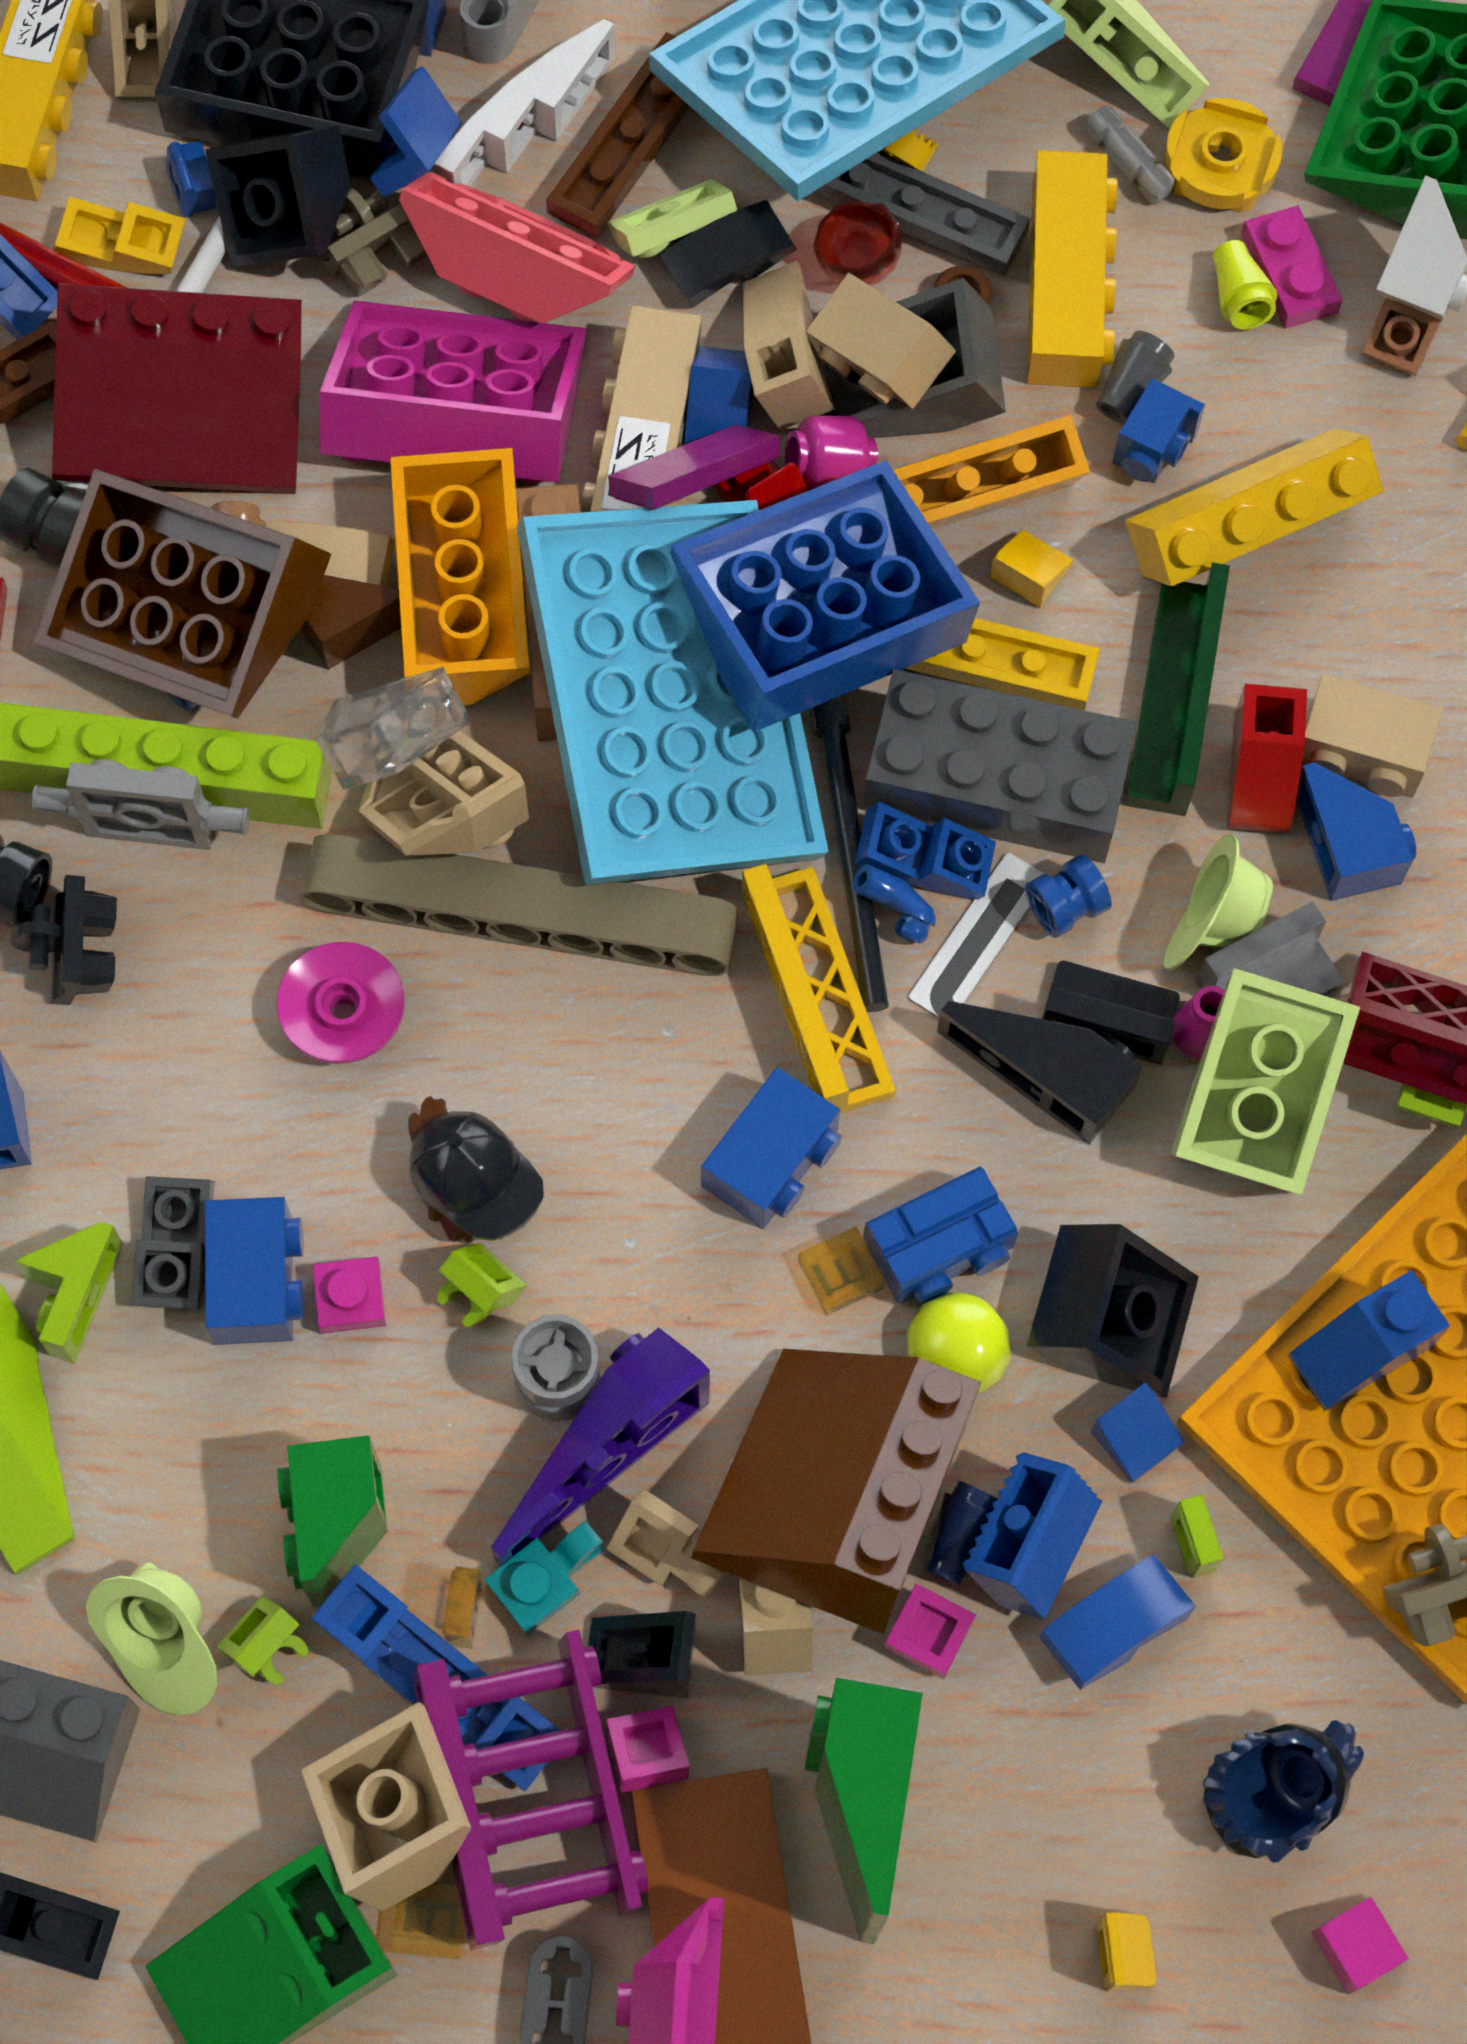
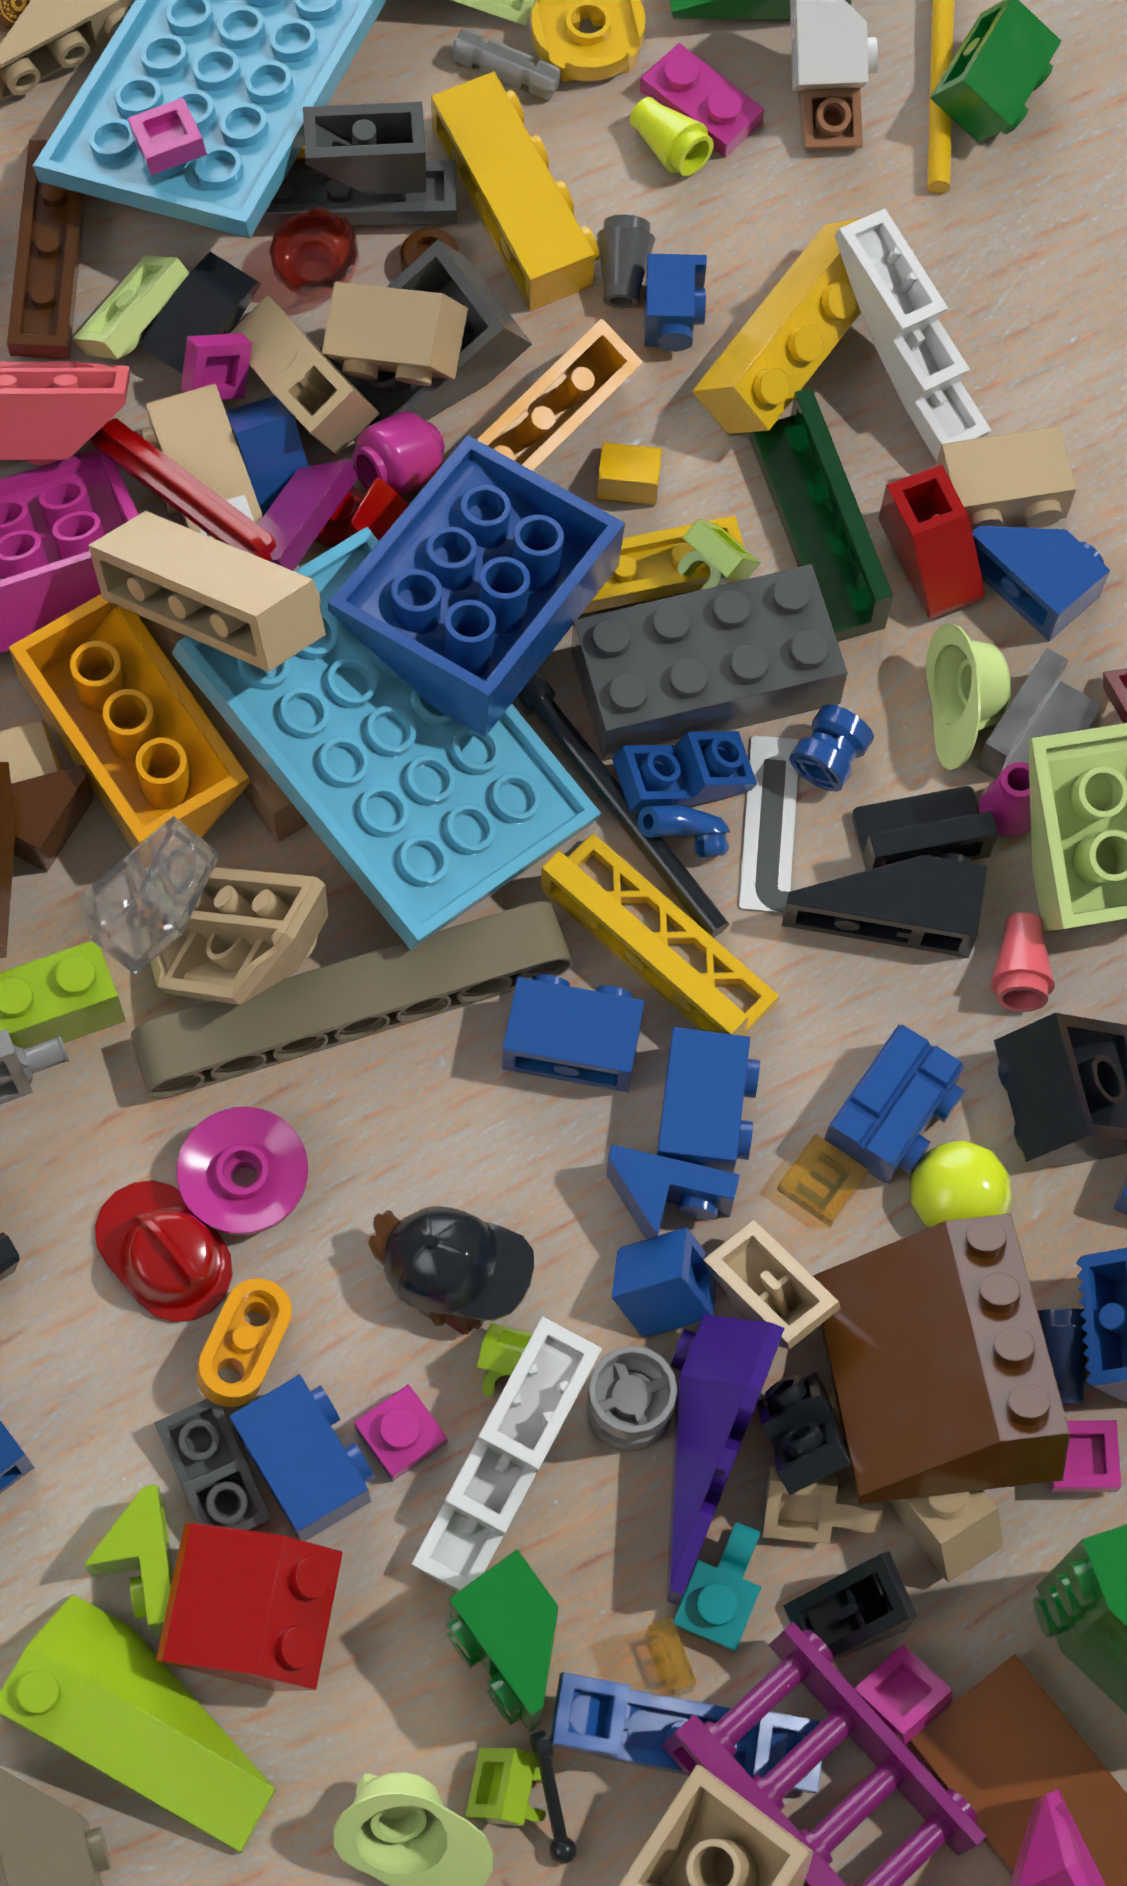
camera: 30 degrees left, 0 degrees up
(130, 1369) = (250, 1607): none -> red slope
(238, 1040) = (163, 1251): none -> red piece
(254, 1148) = (243, 1346): none -> light orange plate
(282, 1718) = (562, 1847): none -> black hinge
(424, 1355) = (506, 1455): none -> white slope
(573, 485) = (208, 590): none -> tan brick
(613, 395) = (182, 490): none -> red axle
(646, 1285) = (663, 1283): none -> blue panel
(687, 1473) = (802, 1431): none -> black slope
(689, 1195) = (651, 1180): none -> blue slope
(692, 1029) = (573, 1032): none -> blue brick
(717, 298) = (217, 360): none -> dark pink plate
(732, 1332) = (770, 1284): none -> tan slope
(772, 78) = (167, 136): none -> dark pink plate
(950, 168) = (368, 145): none -> dark grey slope
(1061, 672) = (719, 551): none -> lime tile
(1128, 1176) = (1022, 966): none -> coral cone
(1349, 557) = (906, 330): none -> white slope

